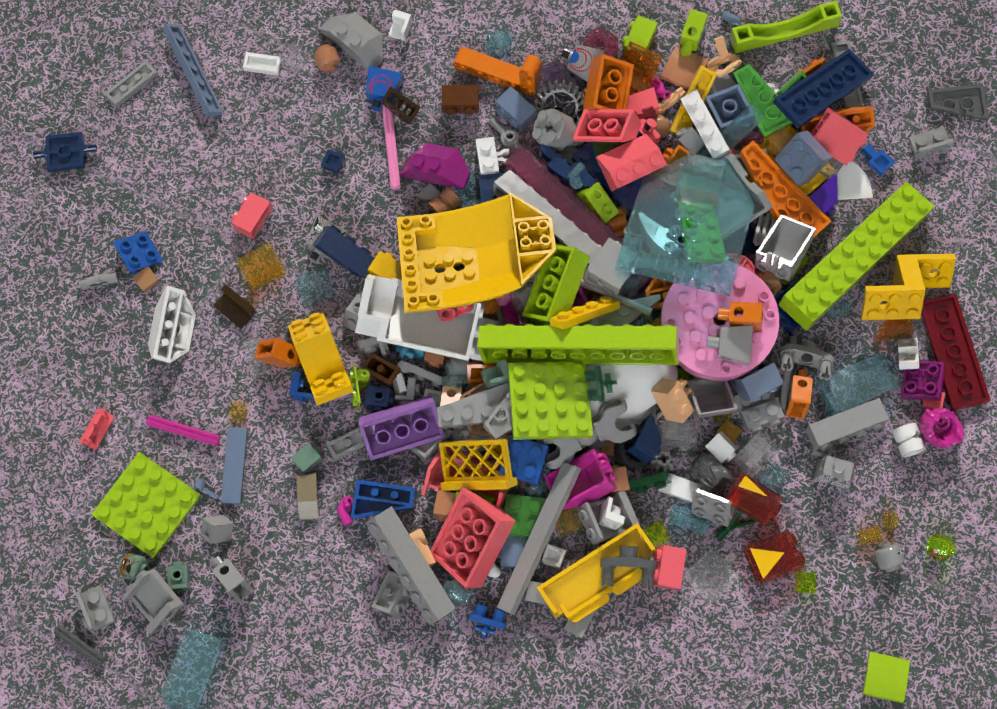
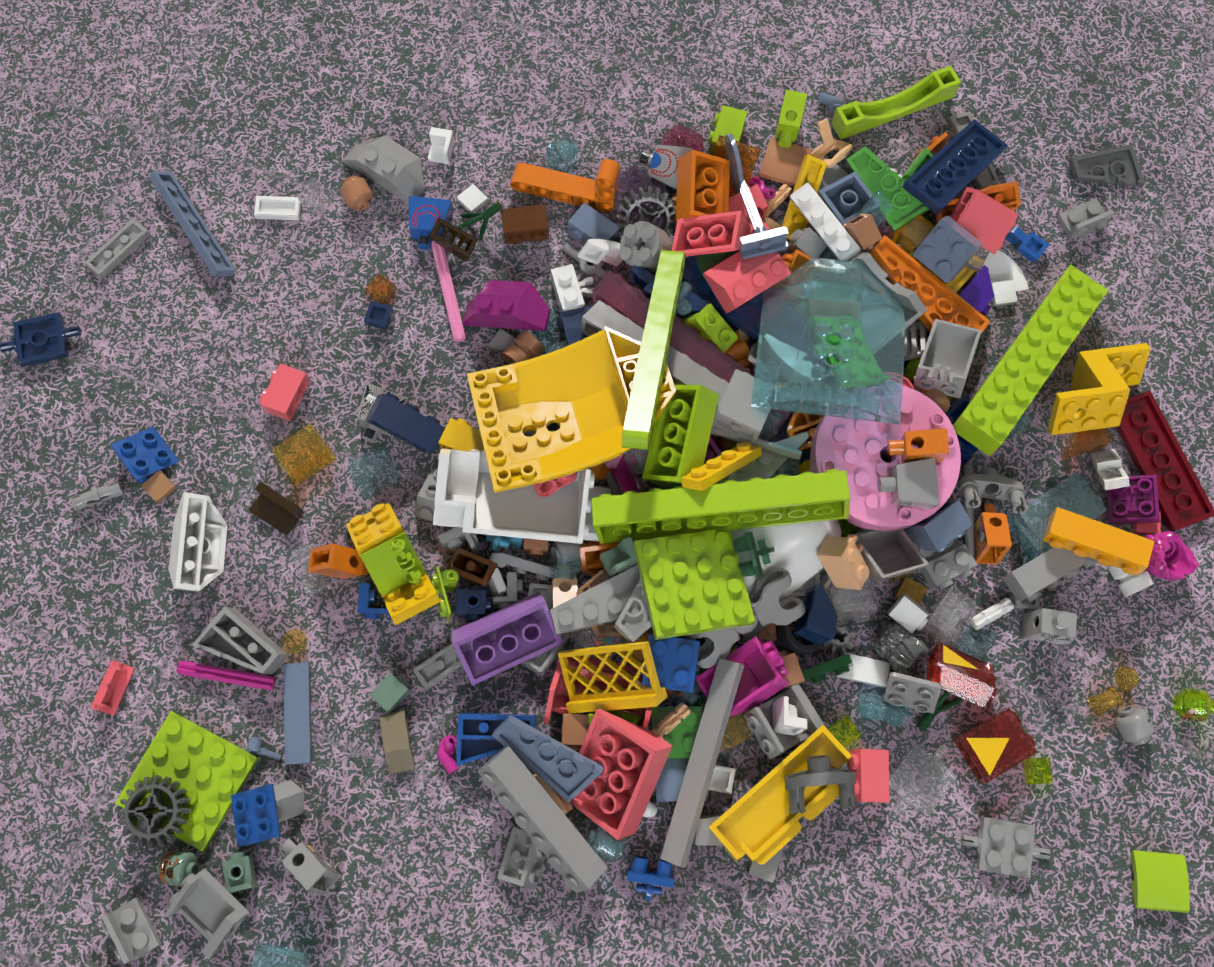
camera: 15 degrees left, 0 degrees up
(122, 507) = (154, 821): none -> dark grey gear
(195, 536) = (255, 815): none -> blue hinge
(196, 404) = (239, 640): none -> light grey wedge
(321, 359) = (393, 564): none -> lime hinge
(337, 140) = (380, 289): none -> clear orange tile
(420, 72) = (472, 199): none -> white tile
(422, 522) = (551, 760): none -> sand blue wing
(425, 88) = (485, 215): none -> dark green plant
(518, 127) = (601, 249): none -> white slope
(520, 504) = (671, 720): none -> light nougat axle
(543, 214) = (653, 352): none -> beam
(645, 136) = (761, 240): none -> sand blue piece
(734, 136) = (863, 231): none -> nougat brick
(768, 636) = (1005, 847): none -> light grey plate
(790, 457) = (991, 613): none -> white axle
(849, 198) = (1004, 293): none -> white tile
(882, 408) = (1098, 541): none -> light orange brick

